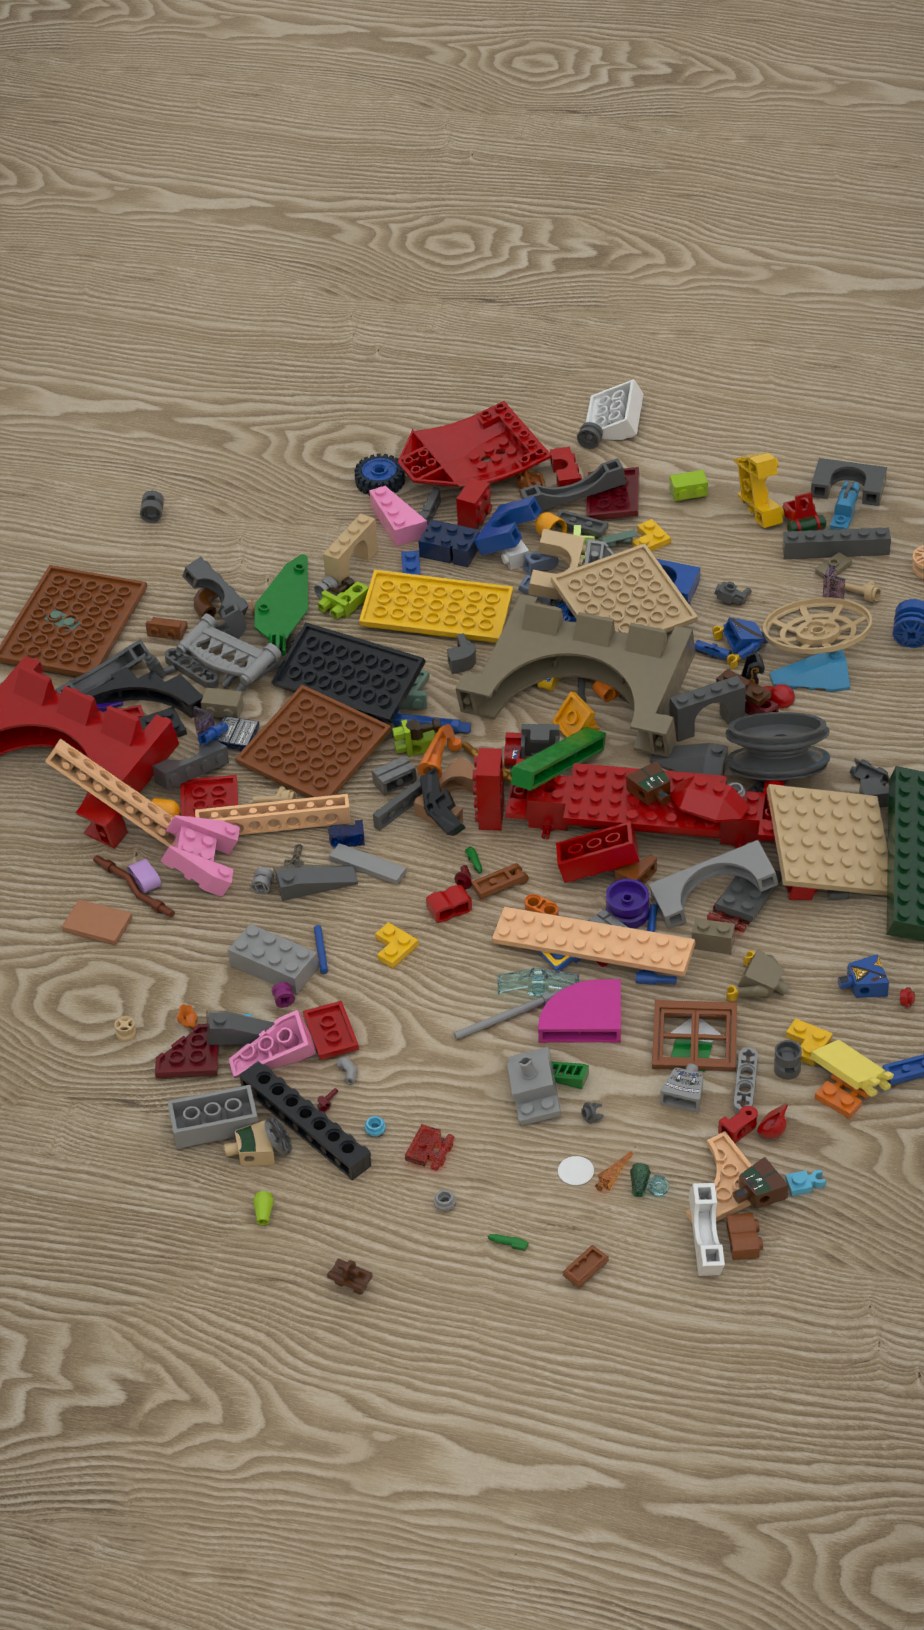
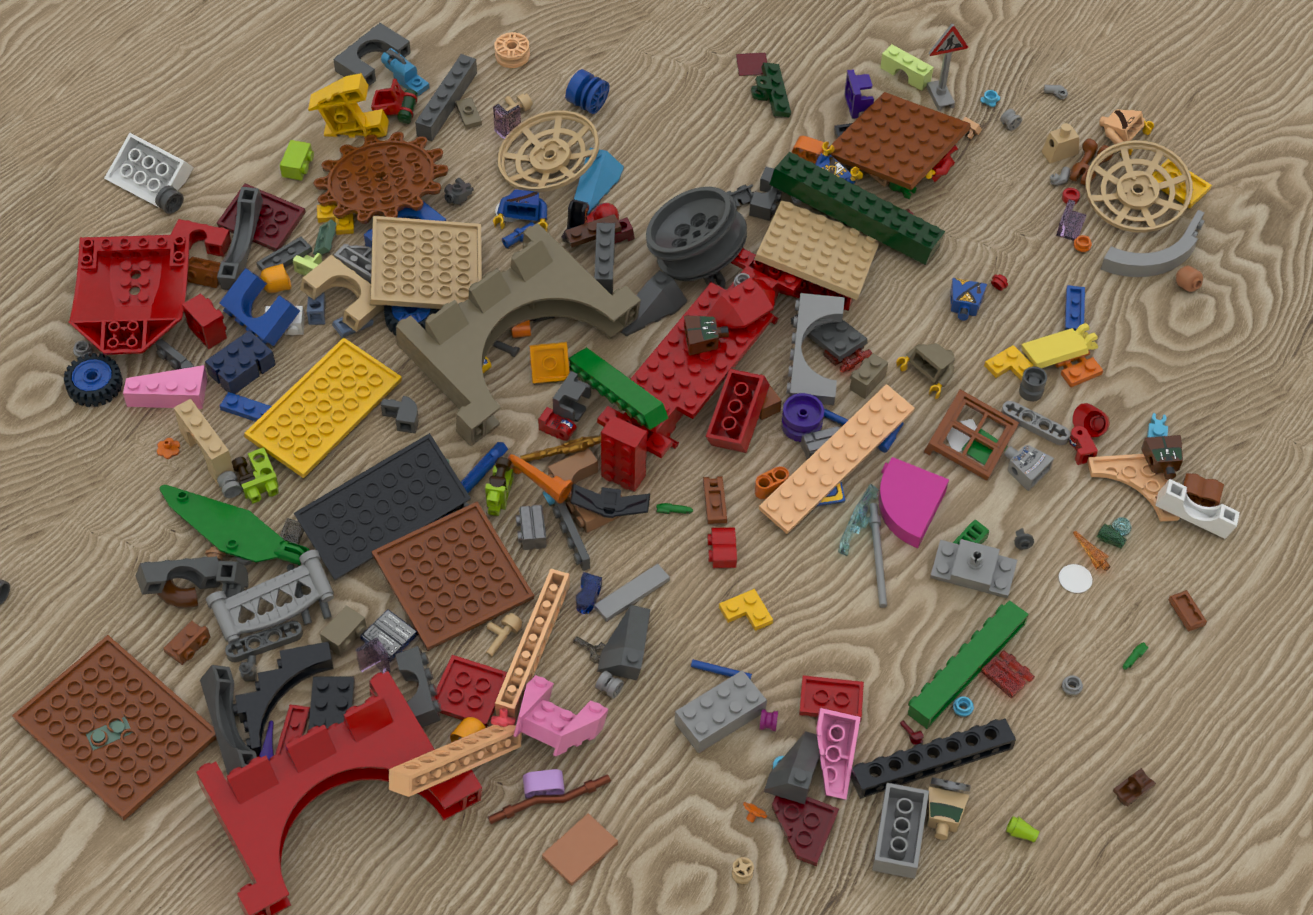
camera: 70 degrees left, 10 degrees up
(213, 733) = (393, 651): blue pin -> none
(350, 1068) = (885, 700): light grey arm -> none
(414, 1110) = (967, 665): none -> green brick
(464, 877) = (699, 524): dark red plate -> none
(706, 539) = (356, 181): none -> dark orange plate

